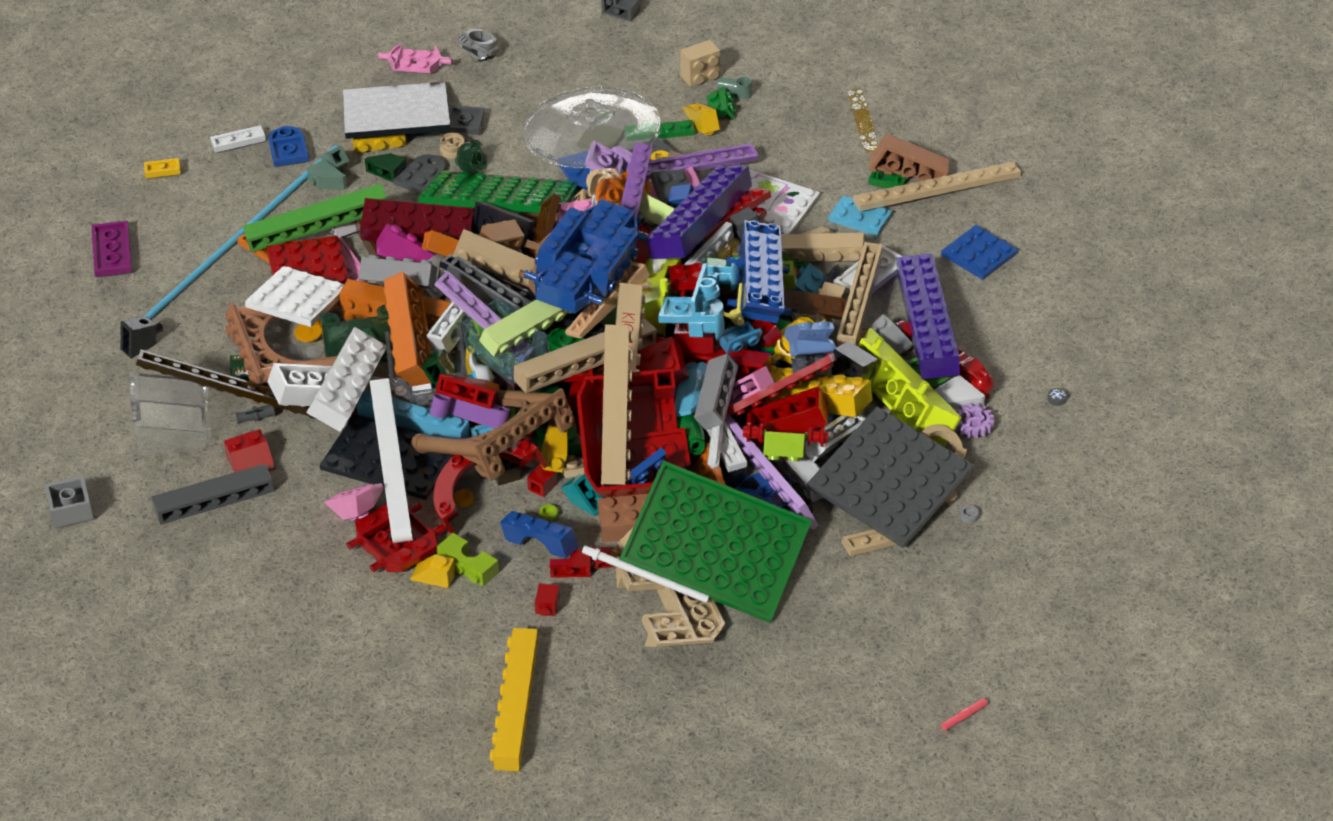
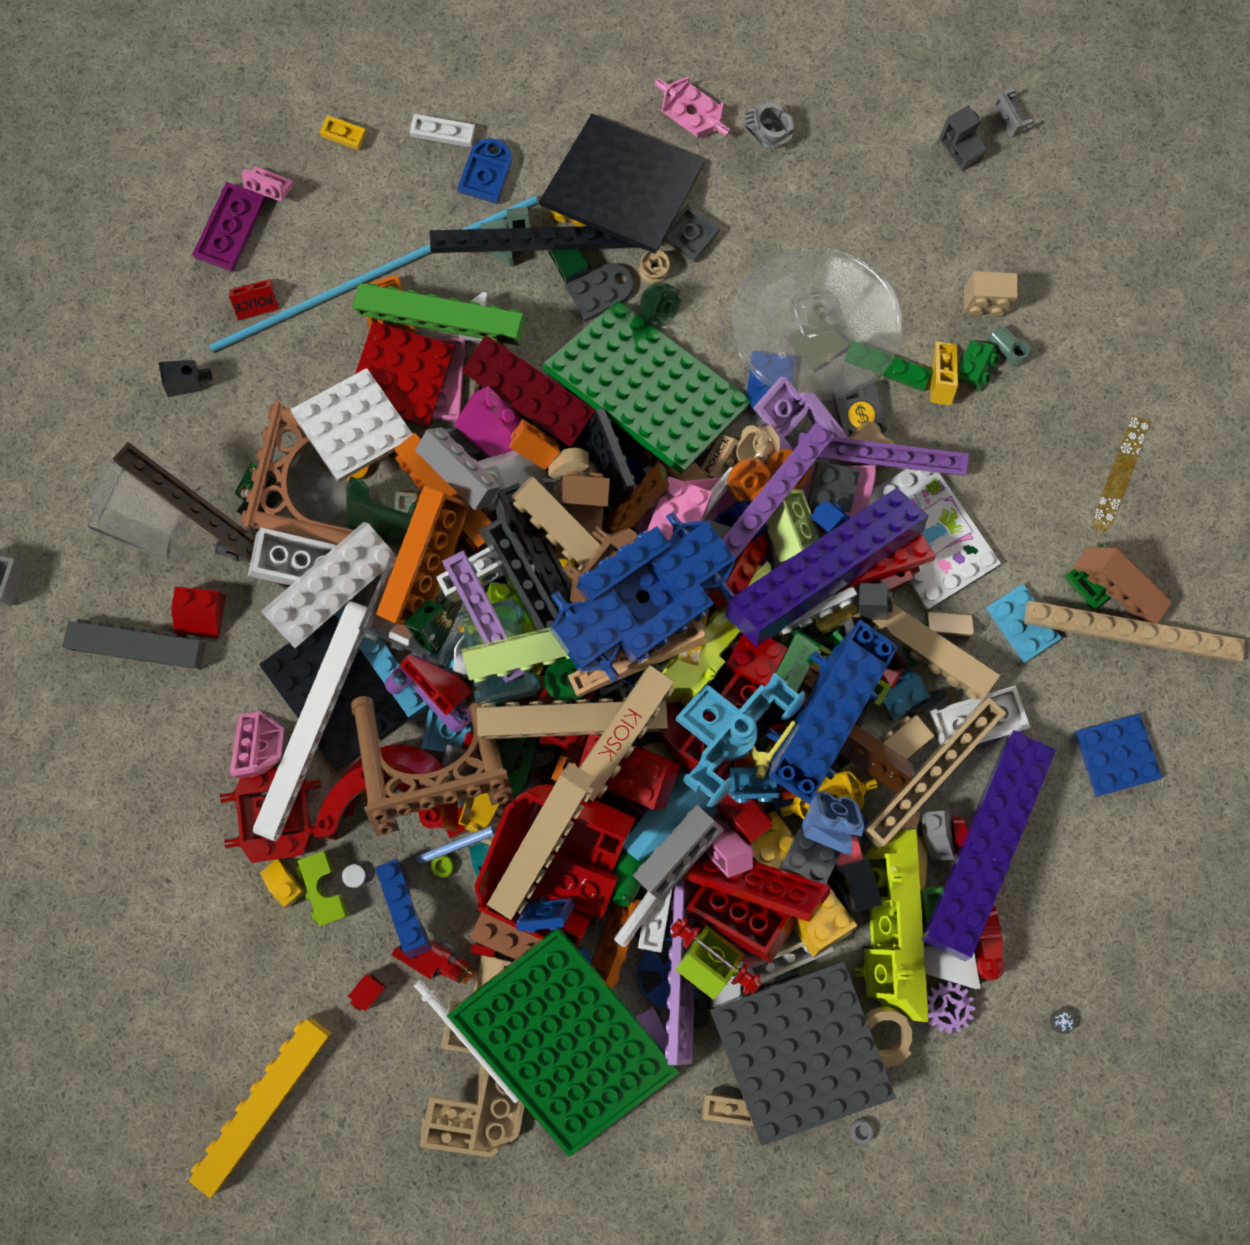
camera: 30 degrees right, 35 degrees up
(124, 211) = (267, 183): none -> bright pink bracket
(161, 278) = (253, 299): none -> red panel
(350, 159) = (522, 239): none -> black plate
(486, 545) = (354, 875): none -> white tile
(551, 485) = (455, 845): none -> light blue piece
(614, 537) = (482, 950): none -> red tile

